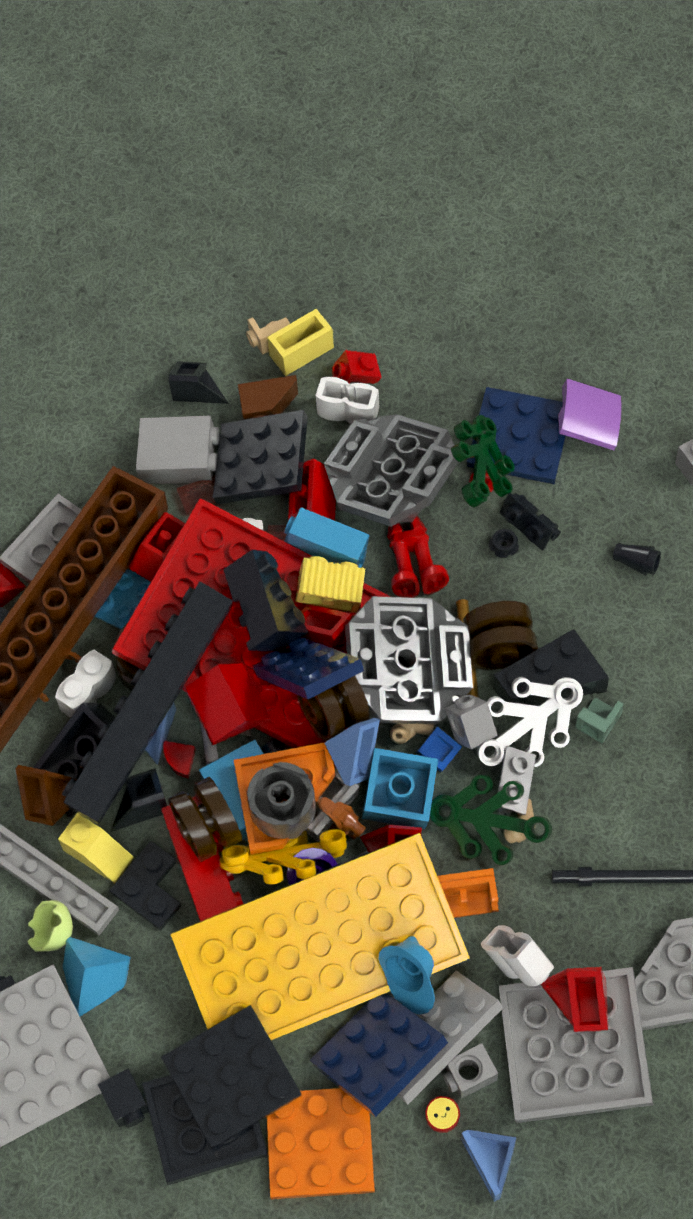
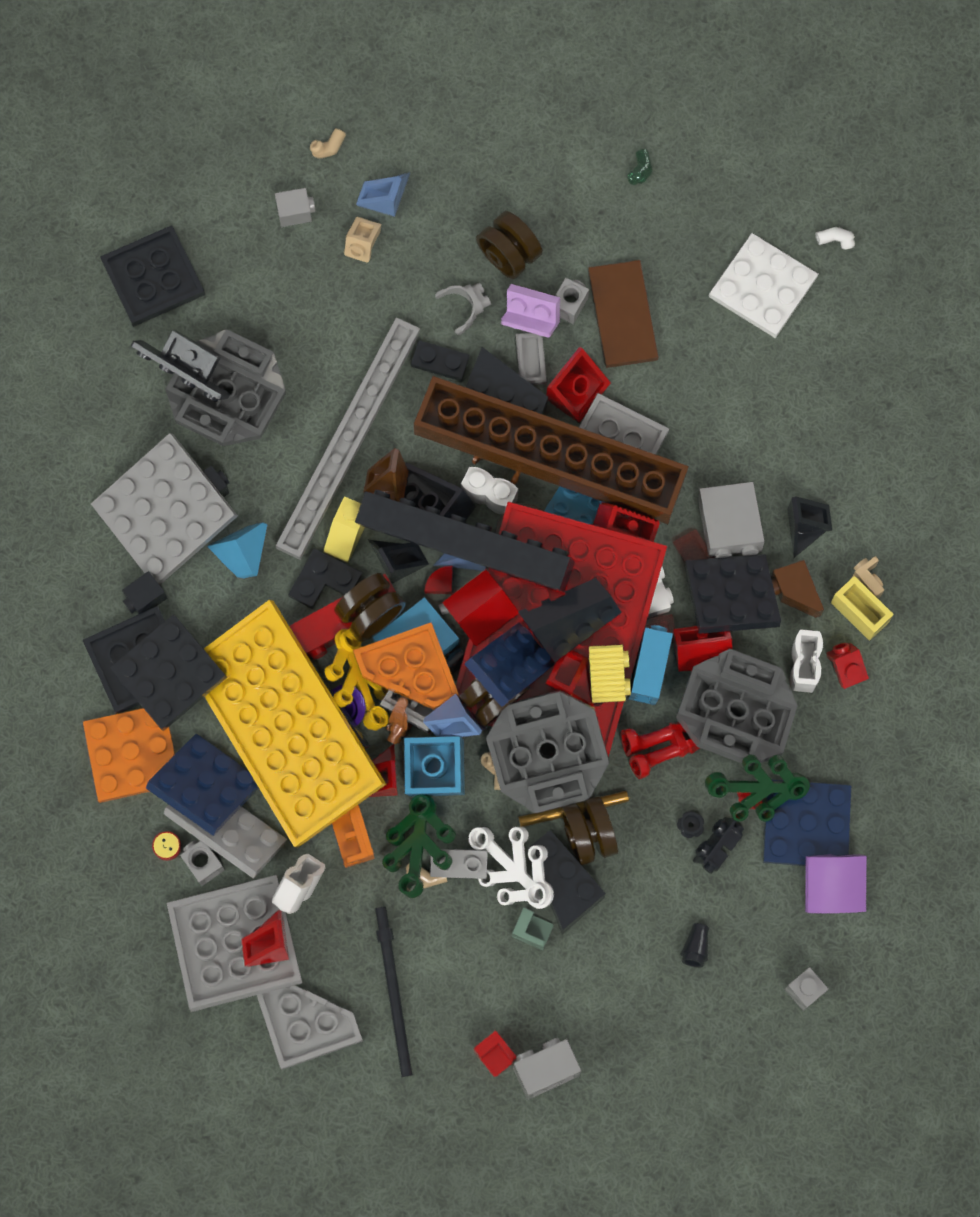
camera: 75 degrees right, 10 degrees up
(51, 926) = (274, 510): yellowish green hair -> none
(271, 786) = (381, 654): dark grey brick -> none
(409, 974) = (269, 797): dark azure piece -> none
(441, 747) = (479, 795): blue plate -> none
(471, 721) = (503, 816): light grey brick -> none
(491, 1157) = (132, 888): medium blue slope -> none

